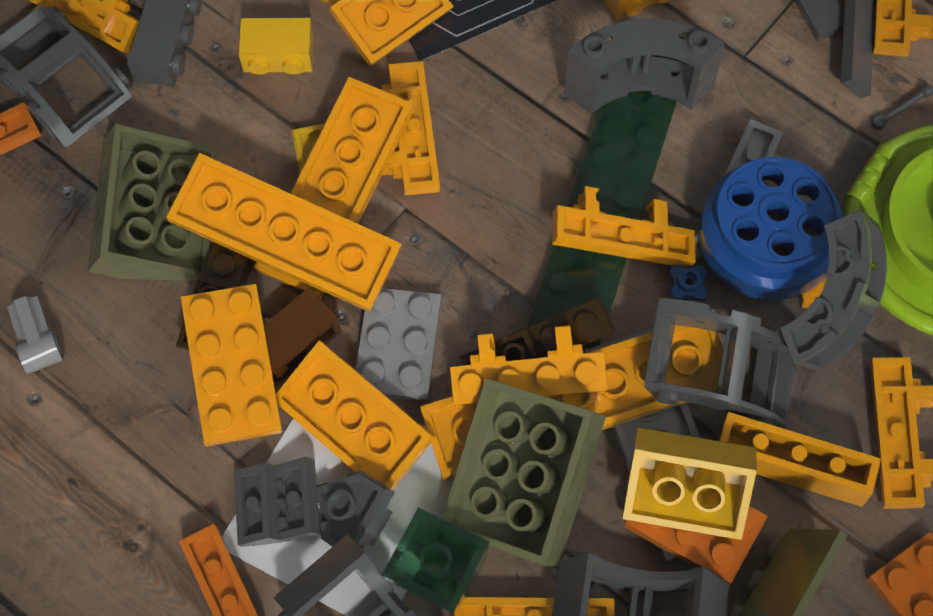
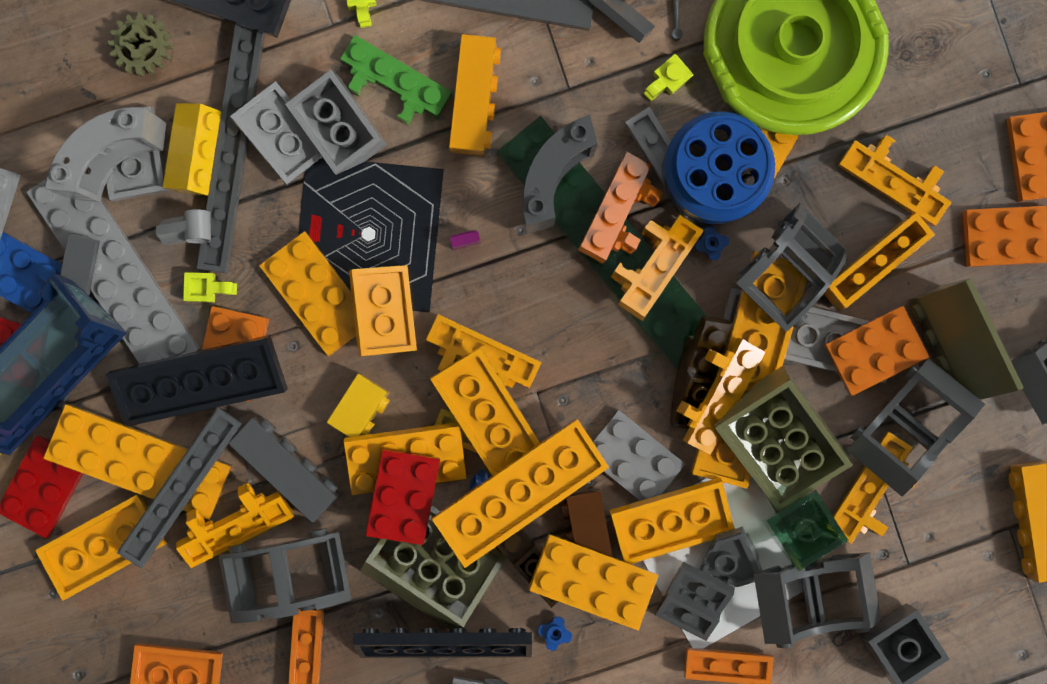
camera: 60 degrees left, 20 degrees up
(70, 260) = (443, 645): none -> black plate
(153, 385) = (547, 630): none -> blue plate
(207, 121) = (402, 496): none -> red plate
(250, 113) = (437, 441): none -> light orange plate
(517, 44) = (465, 240): none -> magenta tile
(630, 158) = (607, 228): none -> orange hinge
(690, 483) = (860, 342): yellow slope -> none
(831, 138) = (669, 76): none -> neon yellow plate
(848, 297) = (813, 166): dark grey window -> none

